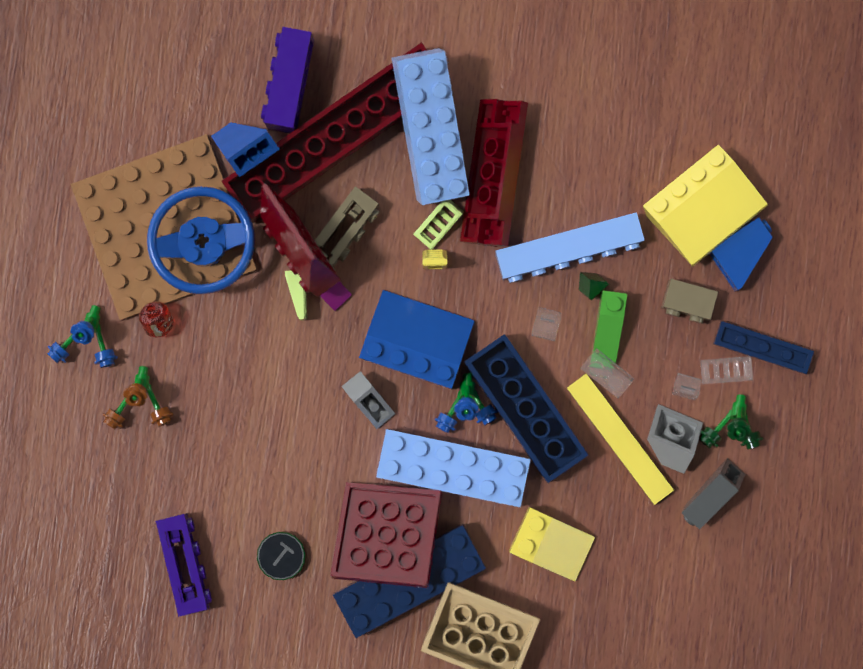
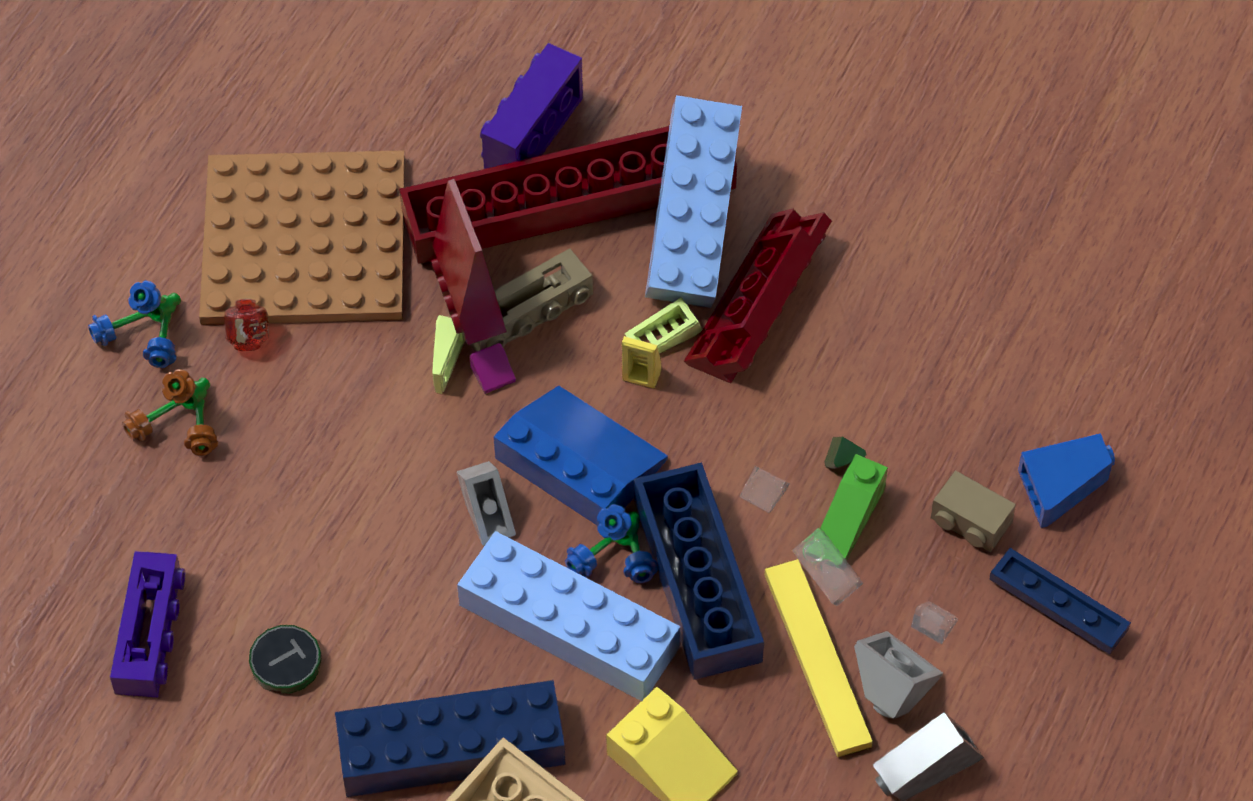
camera: 20 degrees right, 30 degrees down
(184, 243) = (328, 245): blue piece -> none
(244, 146) = (448, 159): blue slope -> none
(386, 534) = (441, 658): dark red plate -> none
(570, 246) = (829, 402): light blue brick -> none
(705, 205) = (1029, 398): light yellow slope -> none
(737, 429) = (989, 663): dark green plant -> none
(747, 365) = (1007, 628): clear slope -> none

